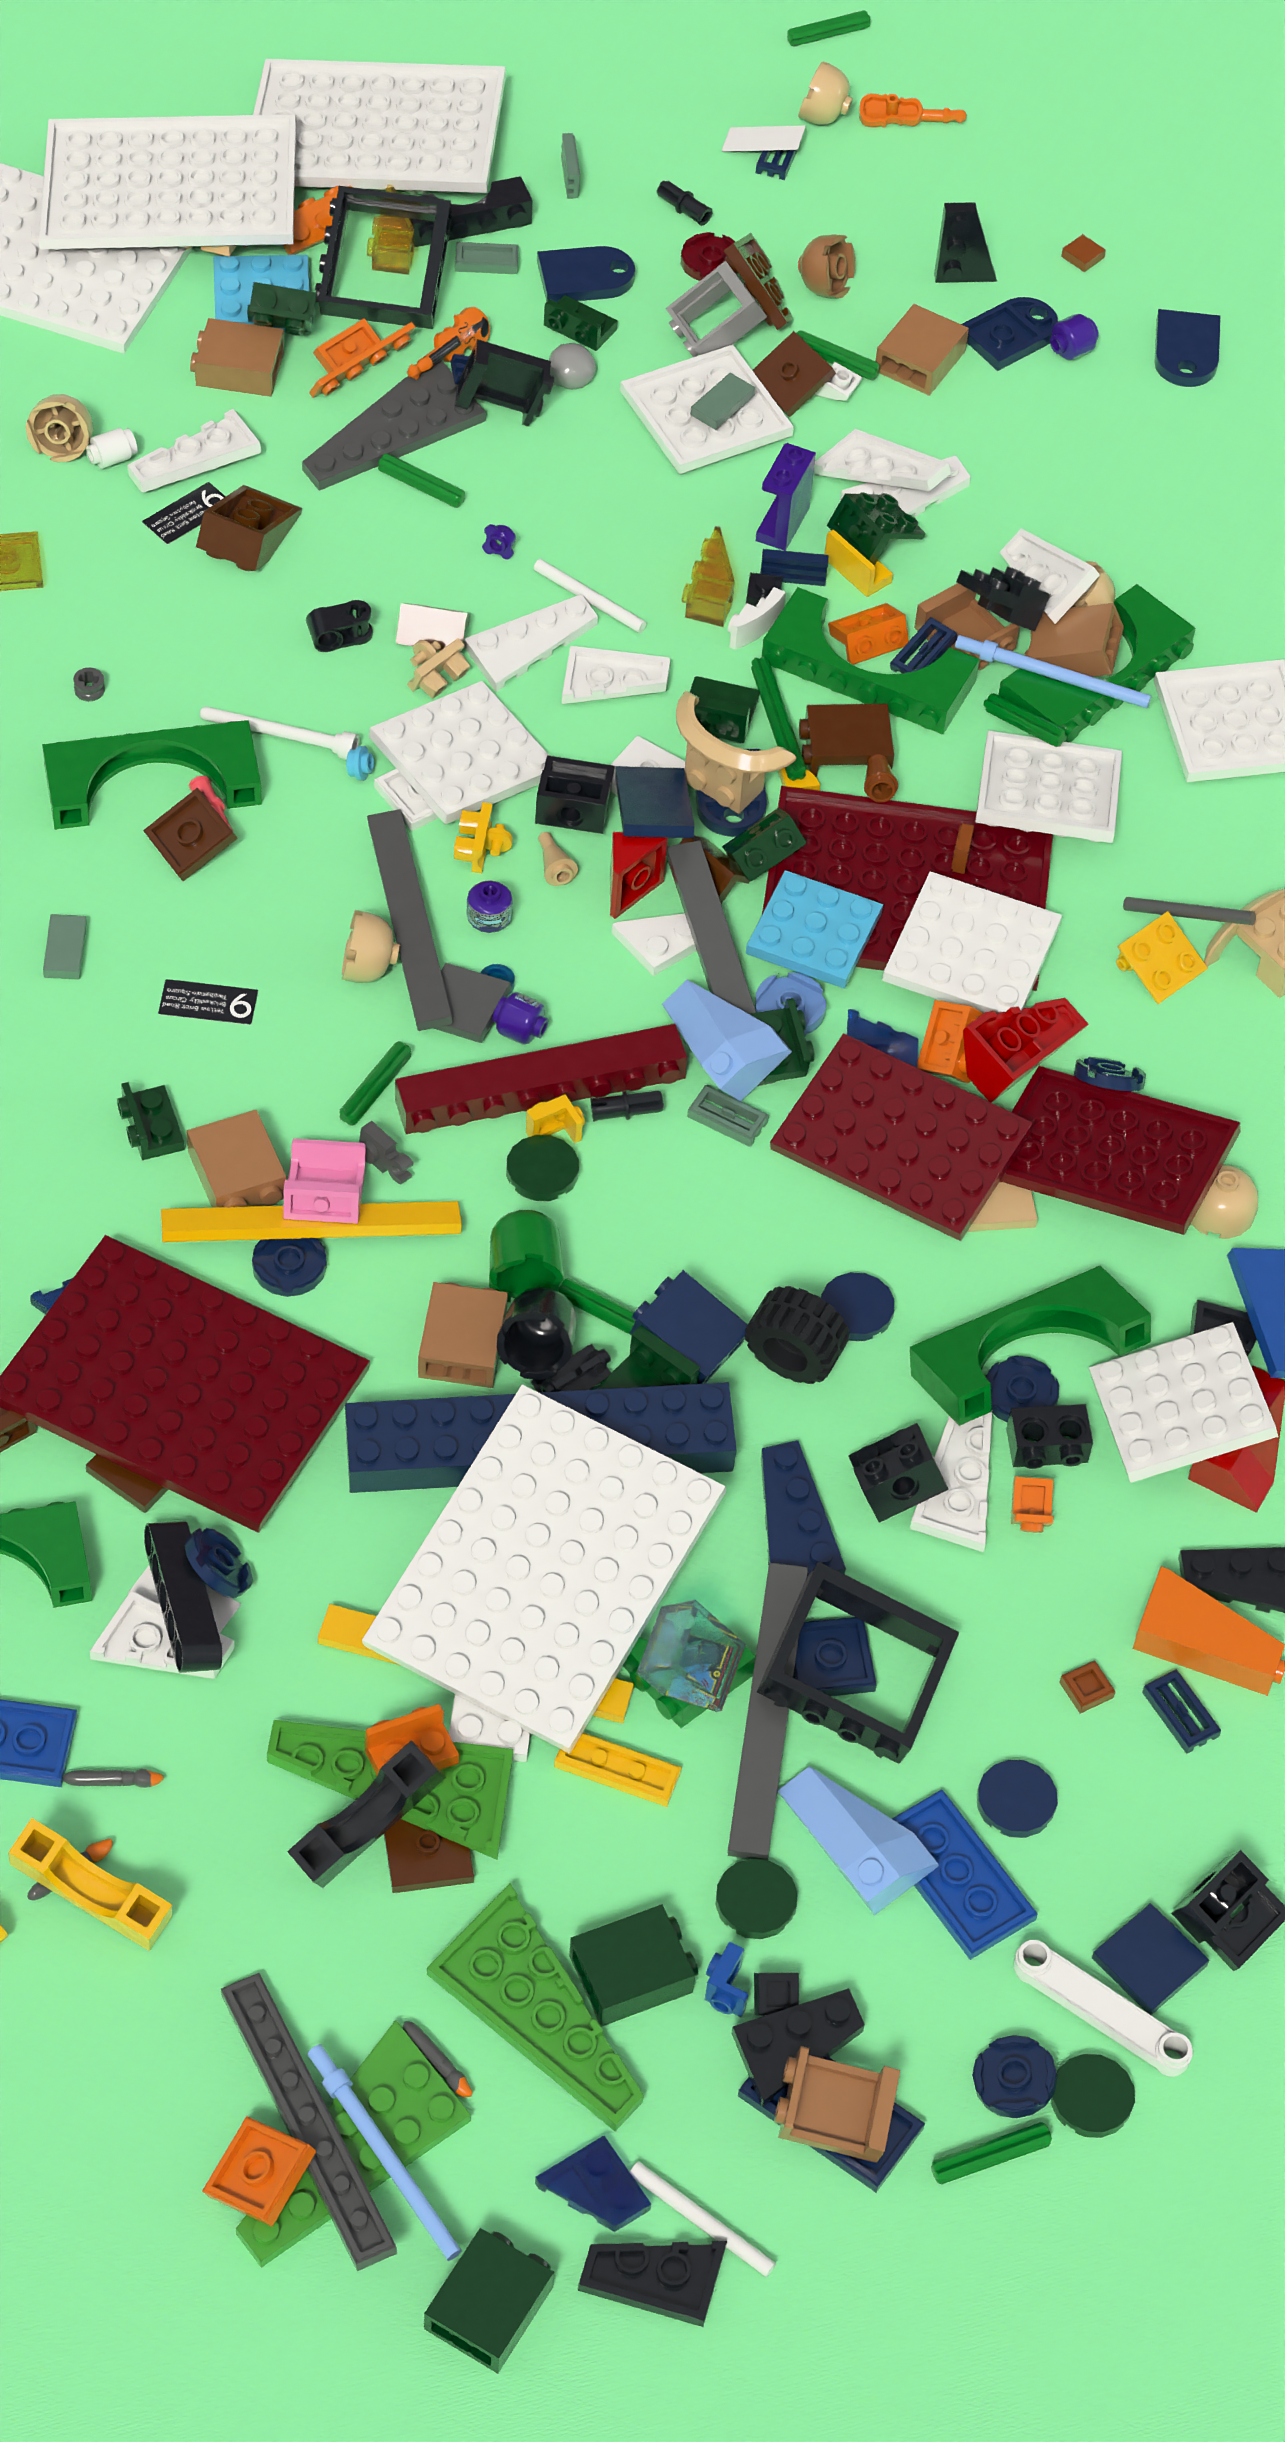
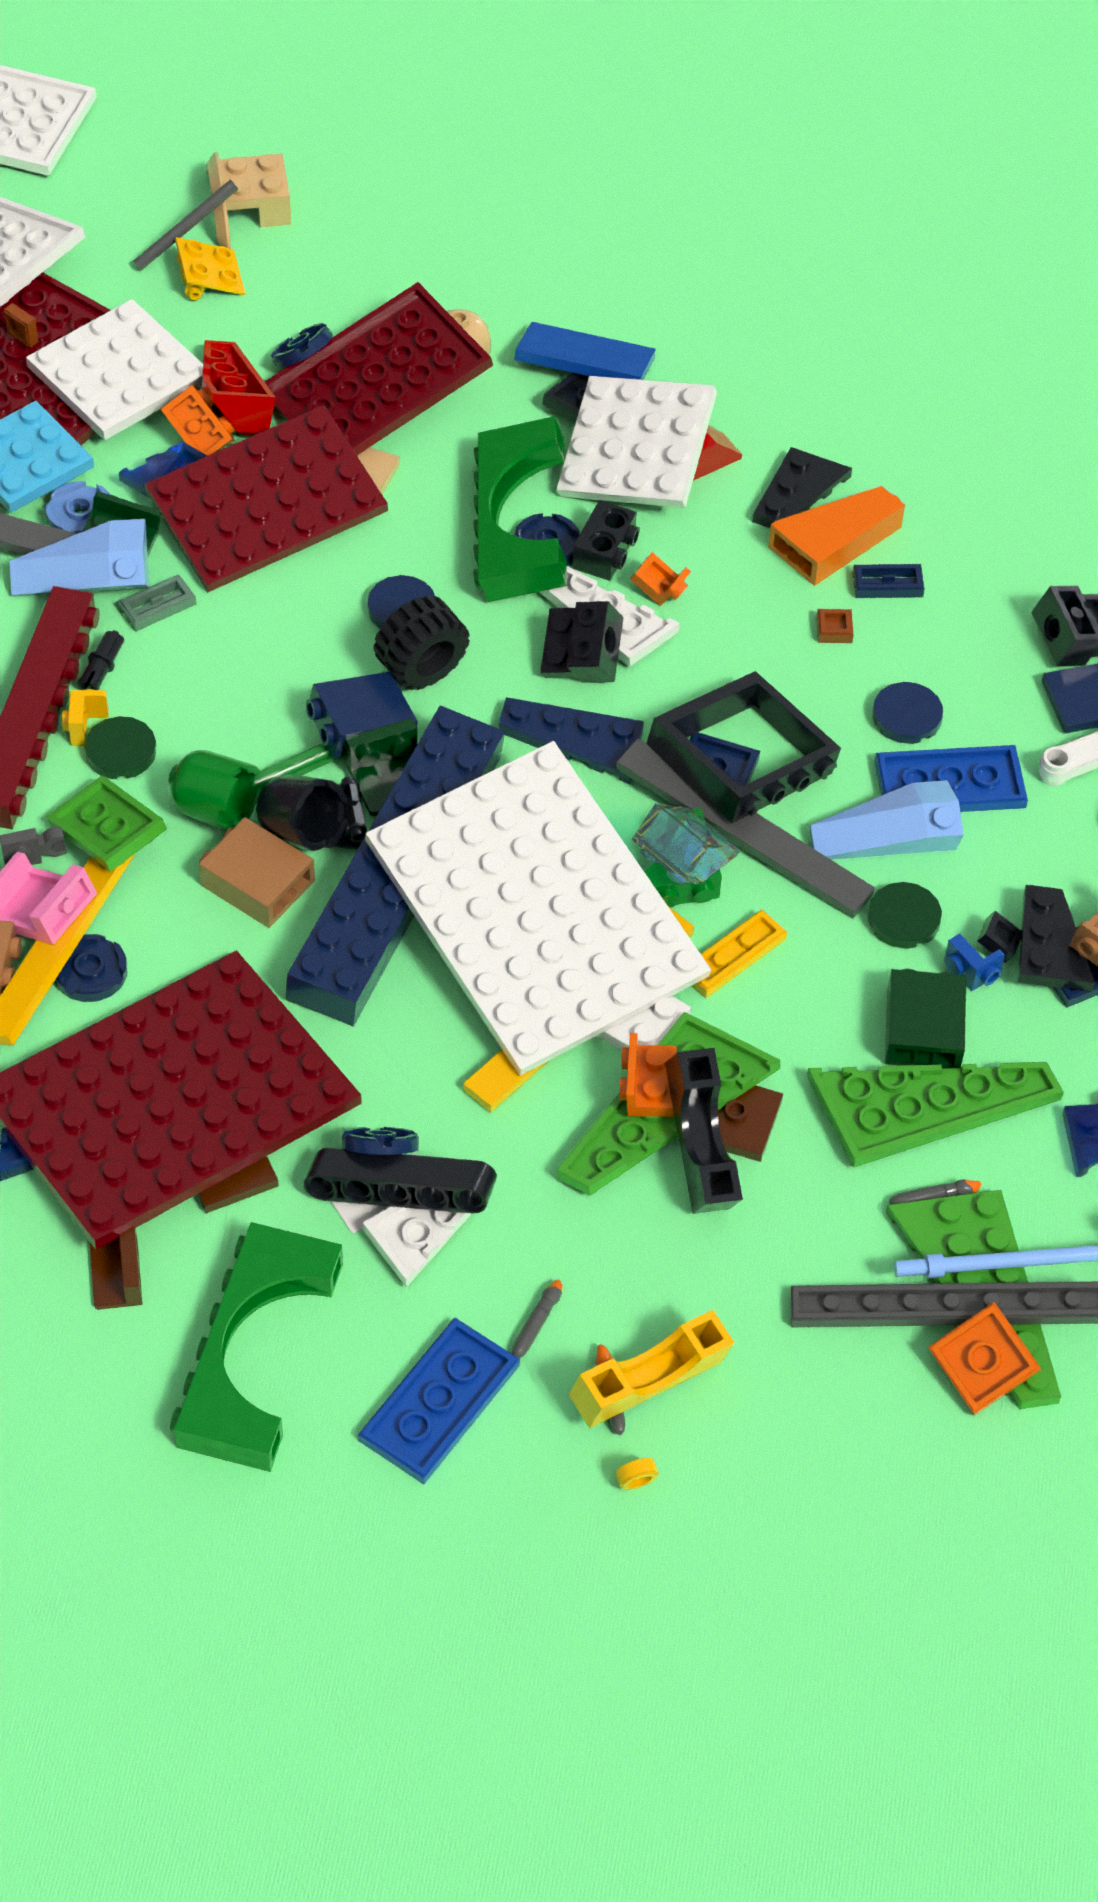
camera: 60 degrees left, 0 degrees up
(438, 1193) = (107, 823): none -> bright green plate

